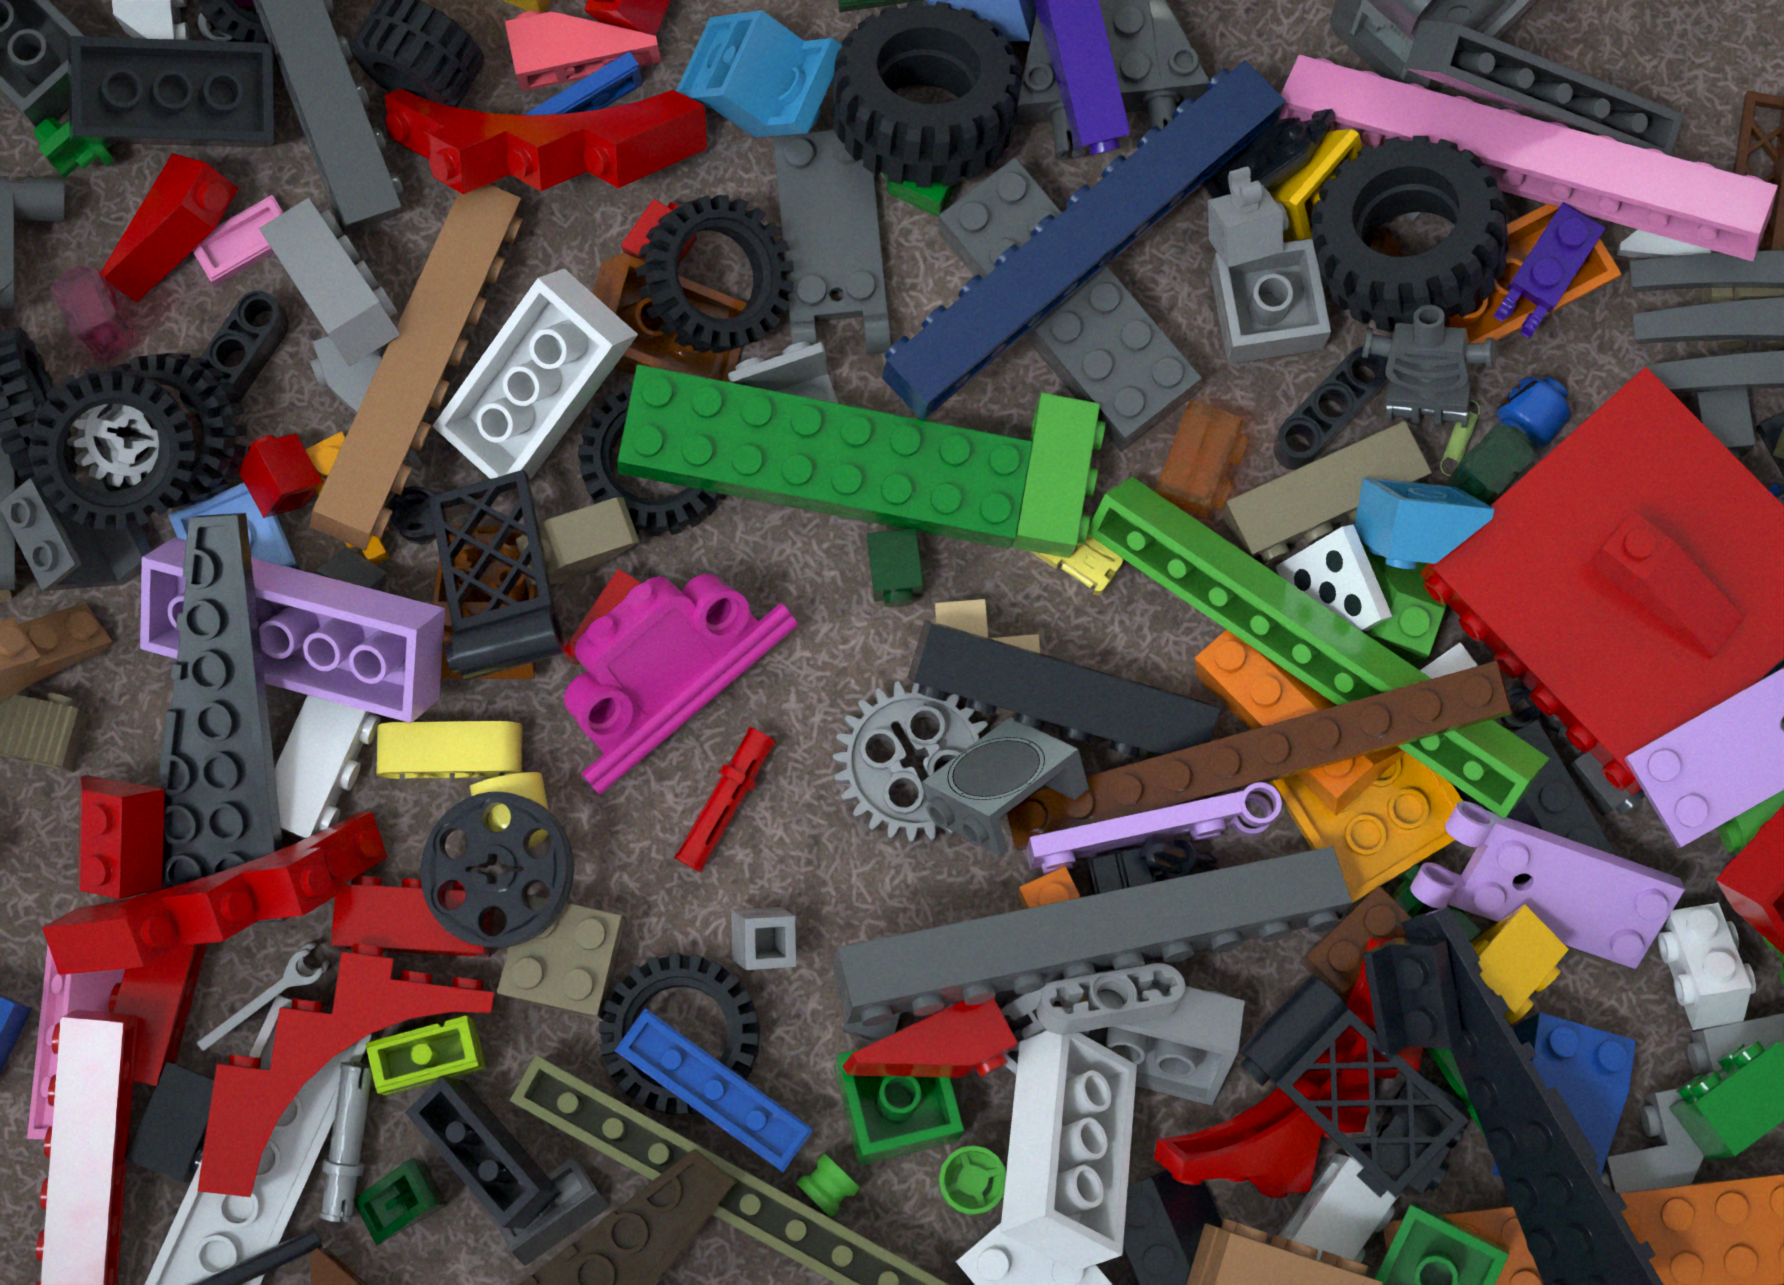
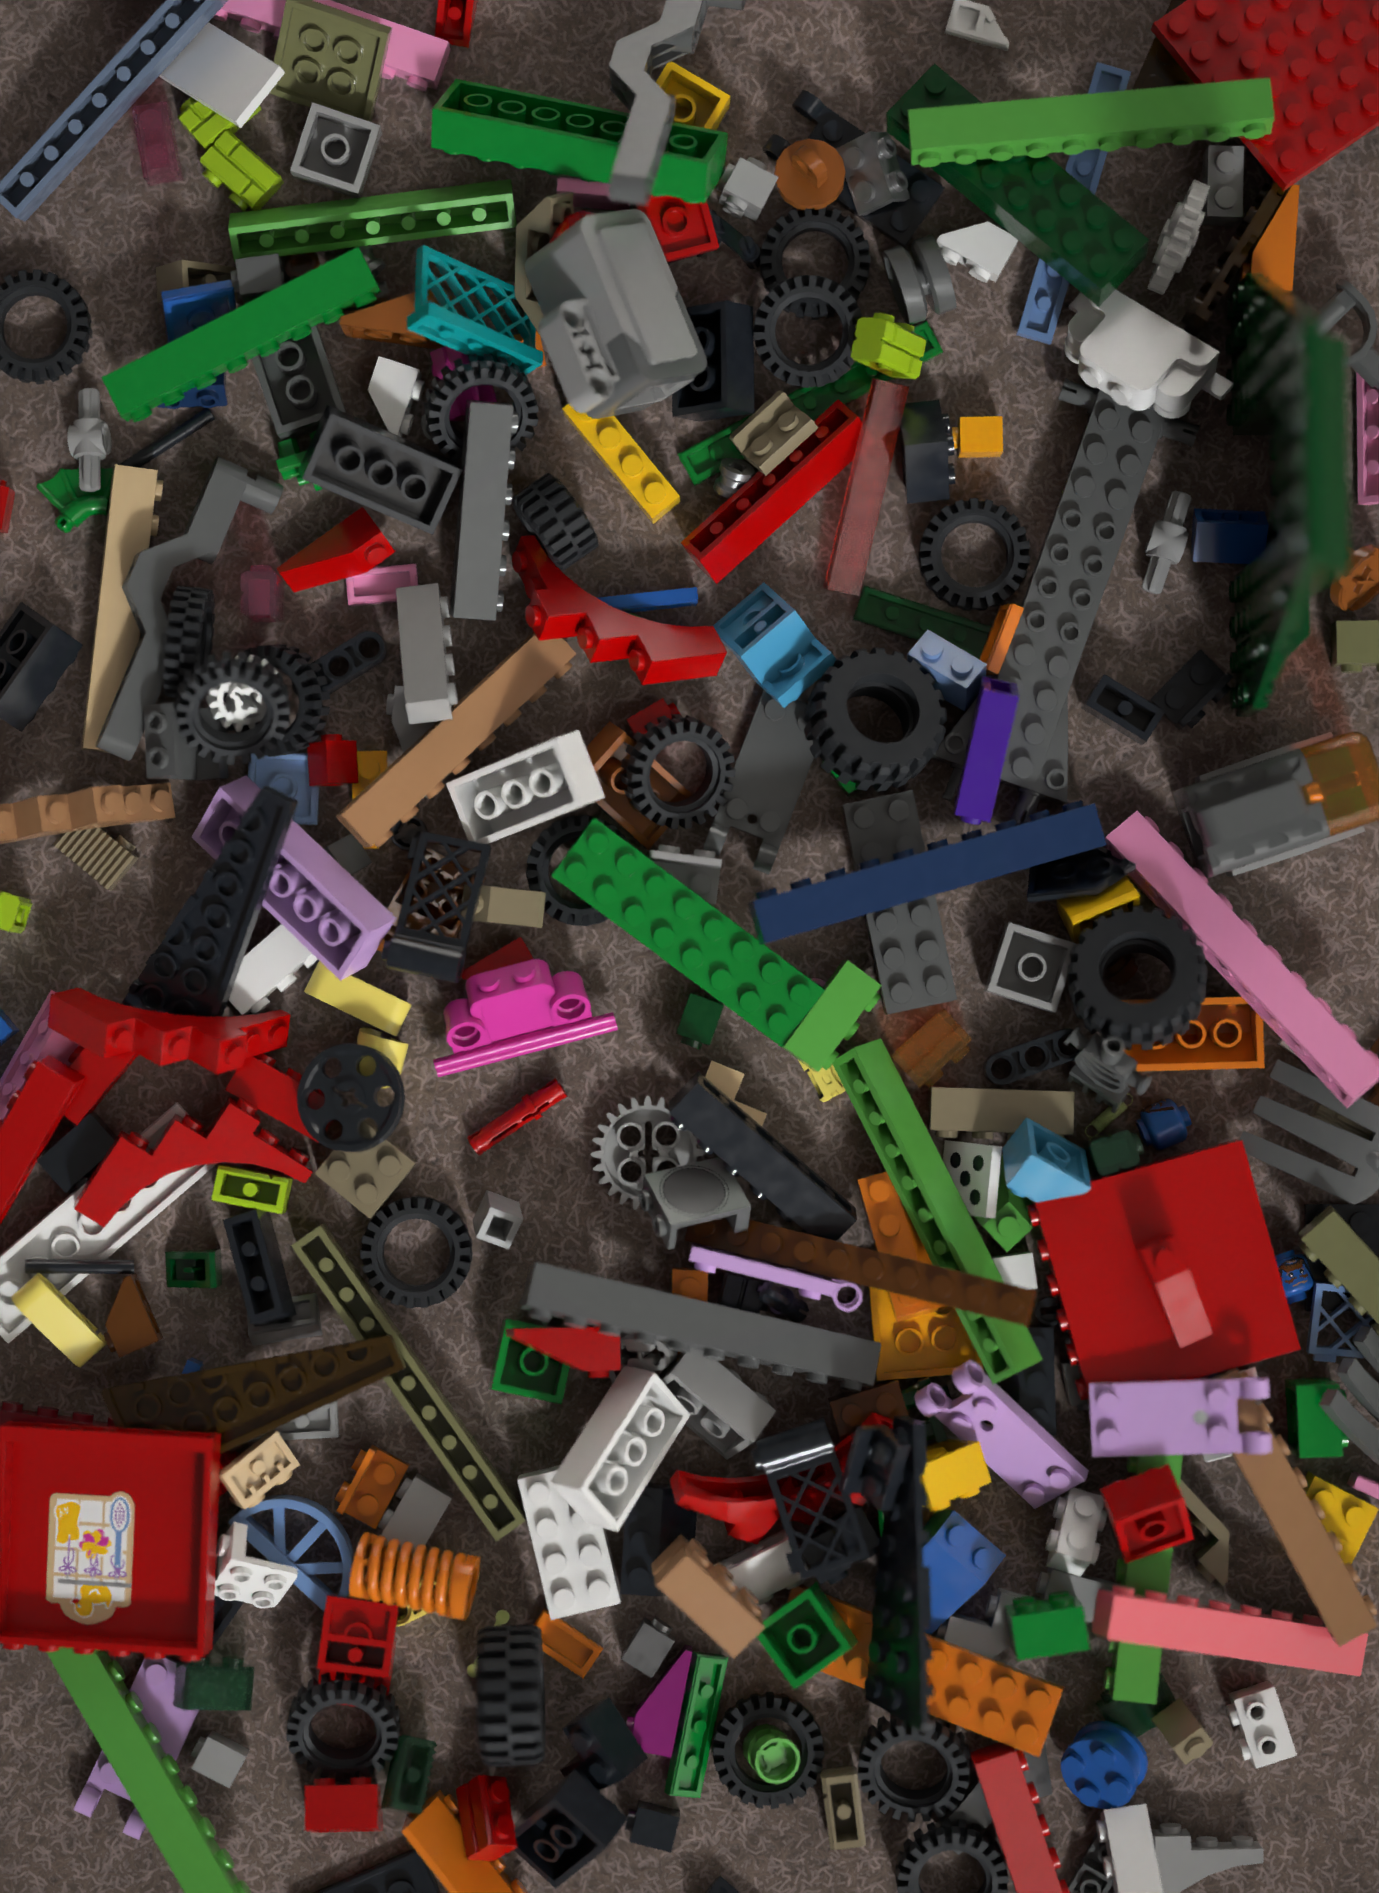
camera: 20 degrees right, 10 degrees up
(120, 837) = (122, 955): red slope -> none
(296, 974) = (168, 1102): light grey flag -> none
(346, 1142) = (171, 1226): light grey pin -> none
(566, 48) = (655, 558): coral slope -> none
(714, 1090) = (420, 1300): blue tile -> none
(828, 1185) = (462, 1391): bright green wheel -> none
(972, 1180) = (553, 1434): bright green wheel -> none
(1094, 1014) = (706, 1366): light grey beam -> none
(1246, 222) = (1037, 915): light grey brick -> none
(1539, 86) = (1276, 925): dark grey brick -> none
(1551, 265) = (1219, 1041): dark purple hinge -> none
(1726, 417) = (1279, 1194): dark grey brick -> none

